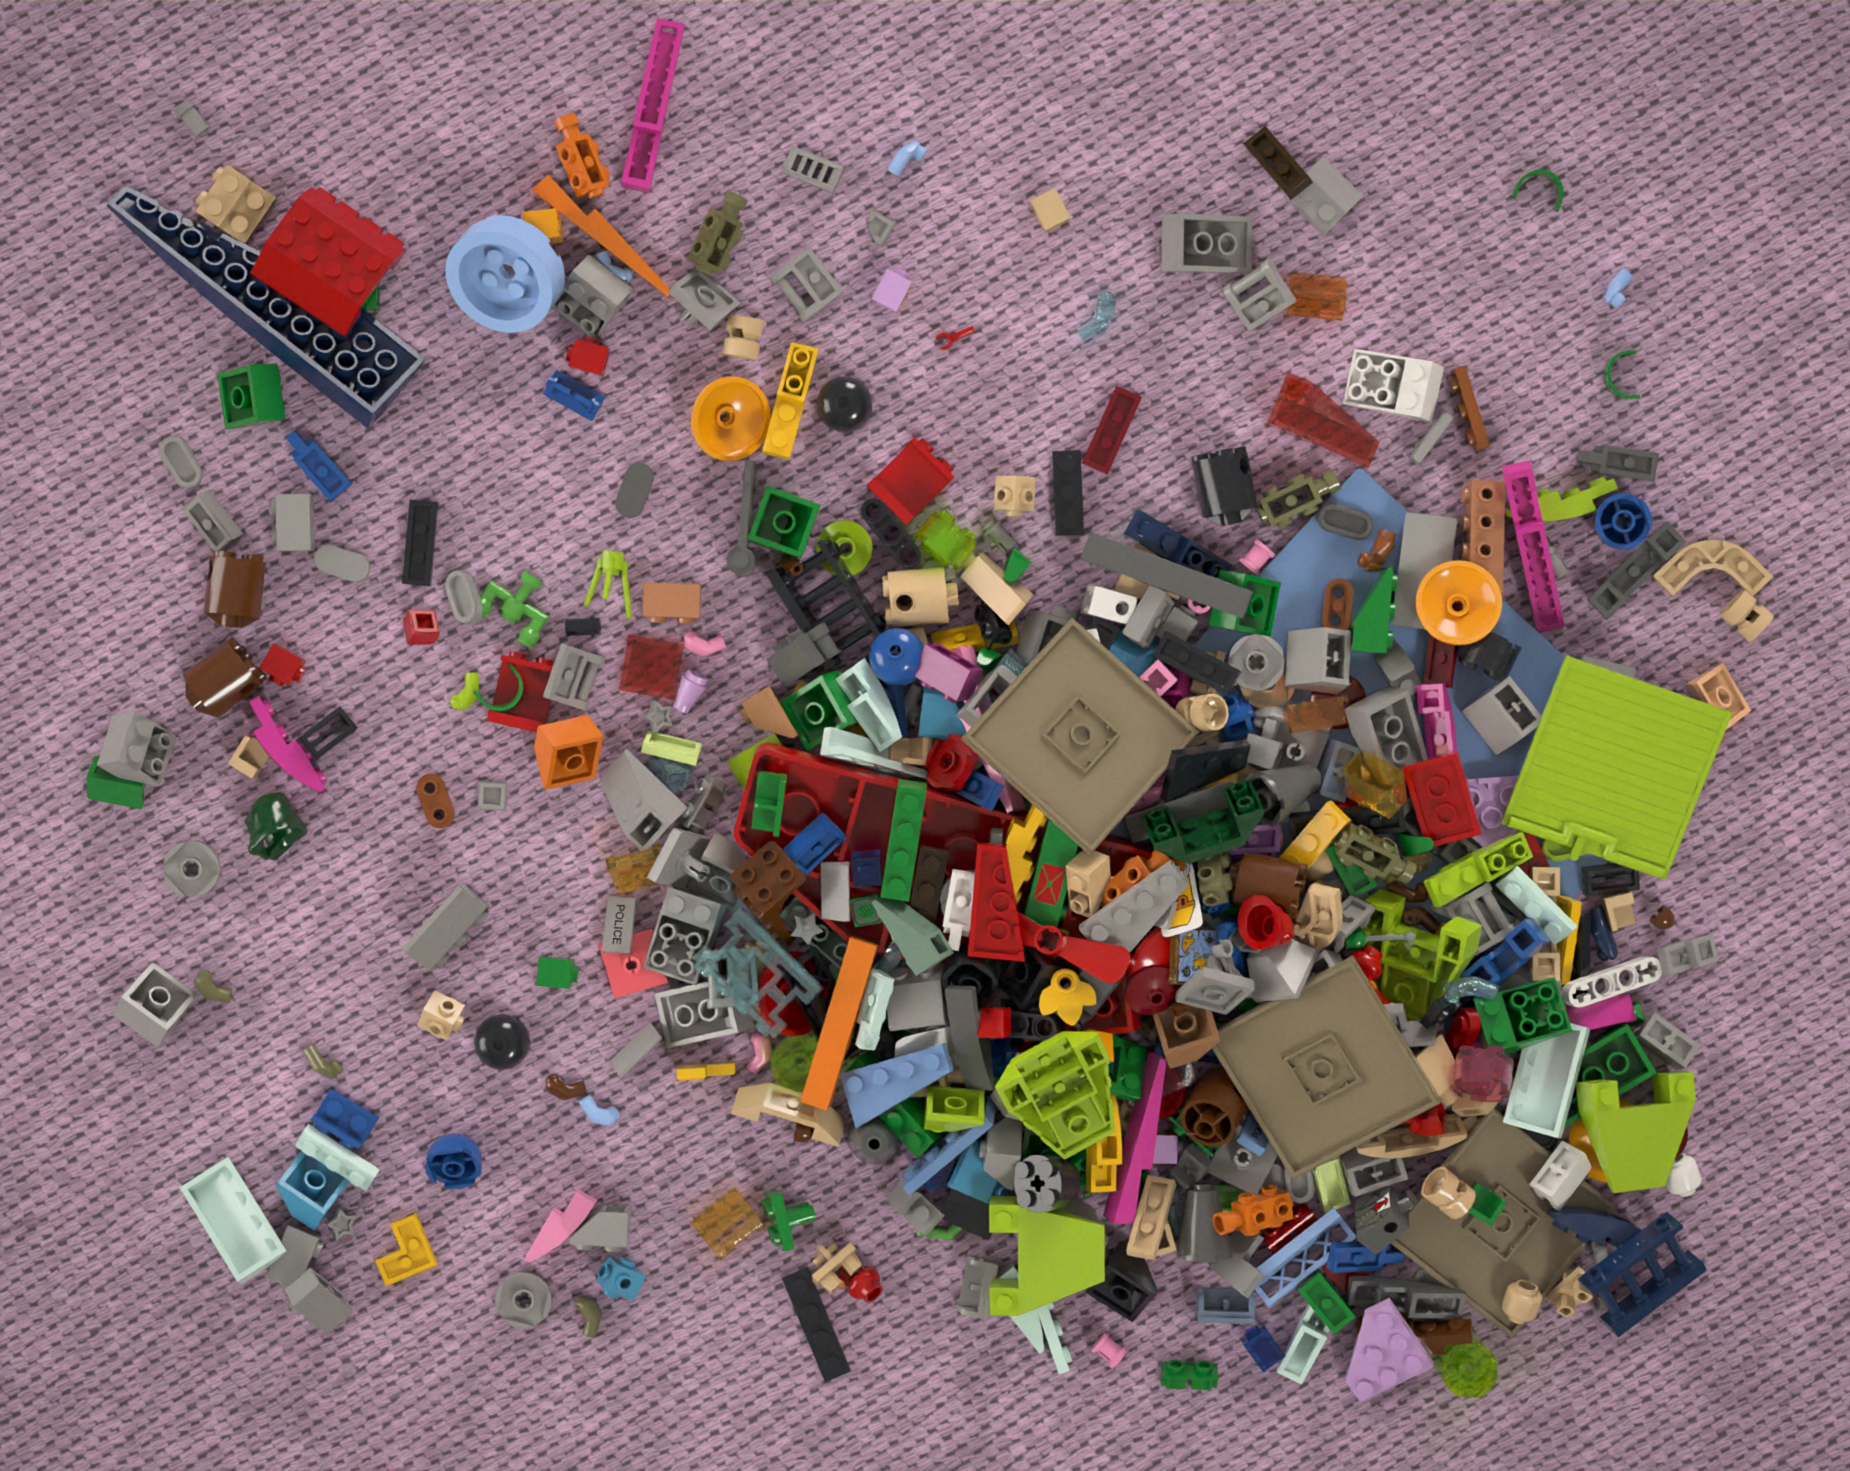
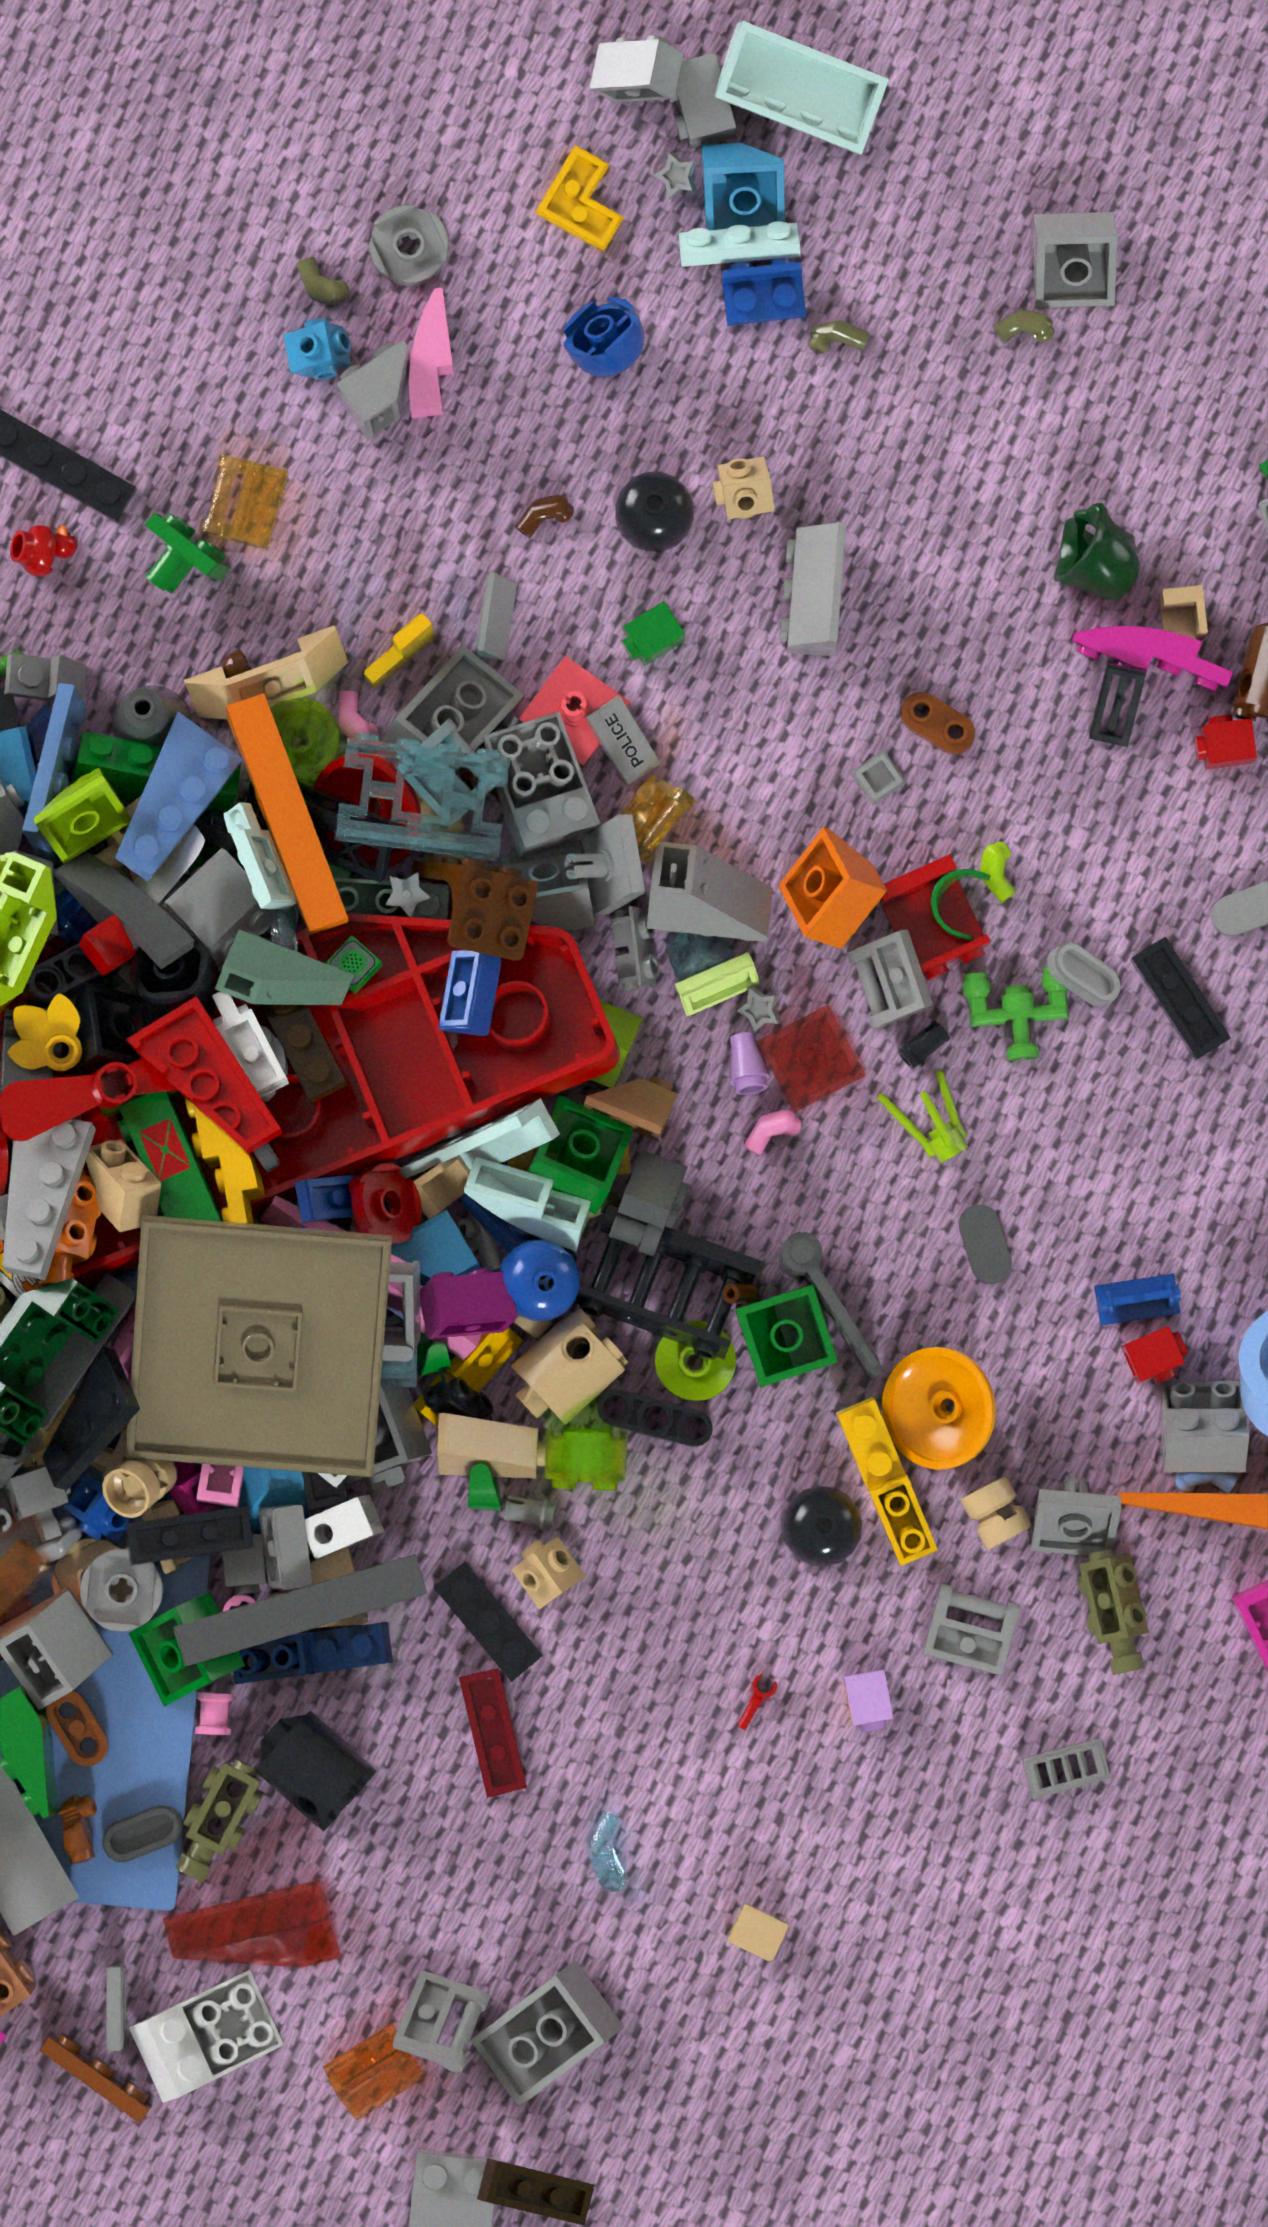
camera: 145 degrees right, 5 degrees down
(176, 868) = (1169, 427): light grey plate -> none
(421, 627) = (1105, 905): red slope -> none
(599, 1115) = (482, 512): light blue arm -> none
(672, 601) = (845, 1149): nougat brick -> none
(769, 801) = (557, 1000): green panel -> none
(825, 1275) = (88, 526): tan hips -> none
(835, 891) = (404, 959): light grey slope -> none
(866, 868) = (388, 1009): clear blue brick -> none
(879, 227) = (938, 1761): light grey tile -> none
(903, 155) = (974, 1866): light blue arm -> none
(903, 840) = (370, 1073): green brick -> none
(911, 480) = (678, 1497): red panel -> none

